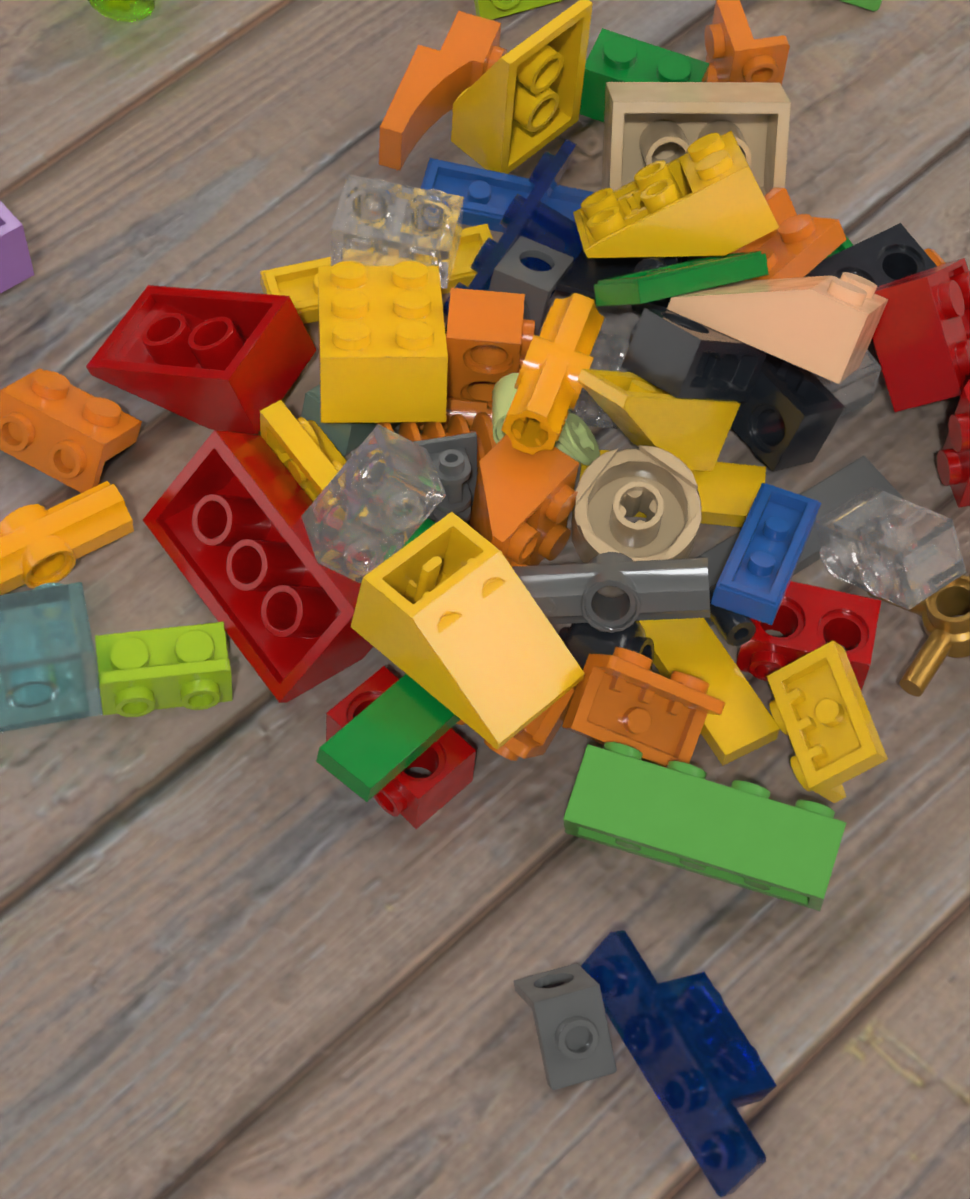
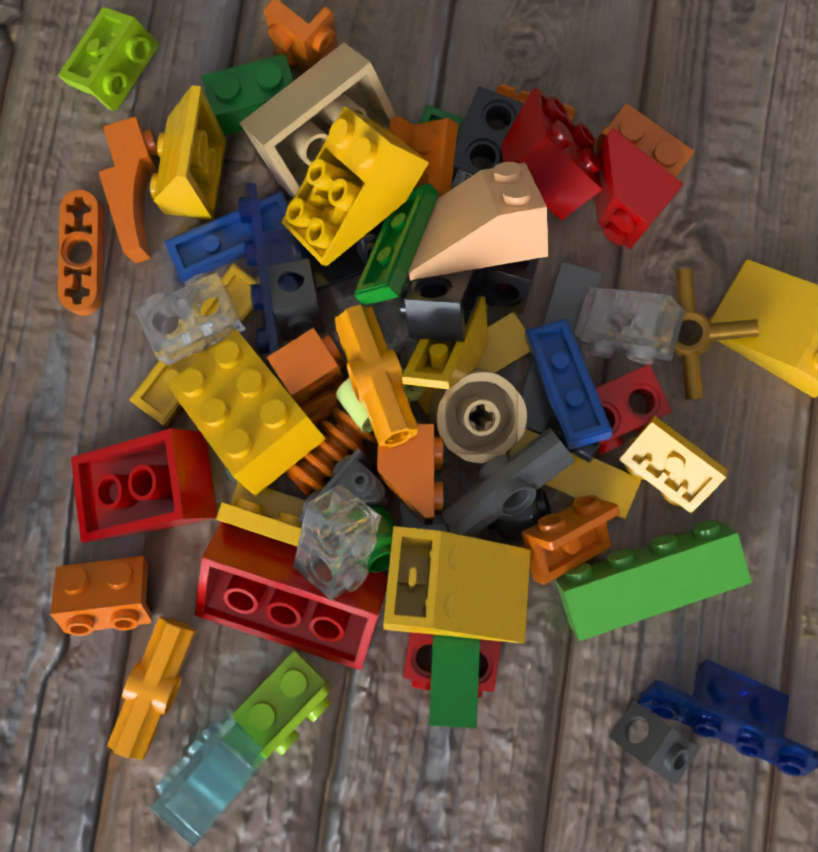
camera: 30 degrees left, 25 degrees up
(326, 136) = (94, 223): none -> orange beam

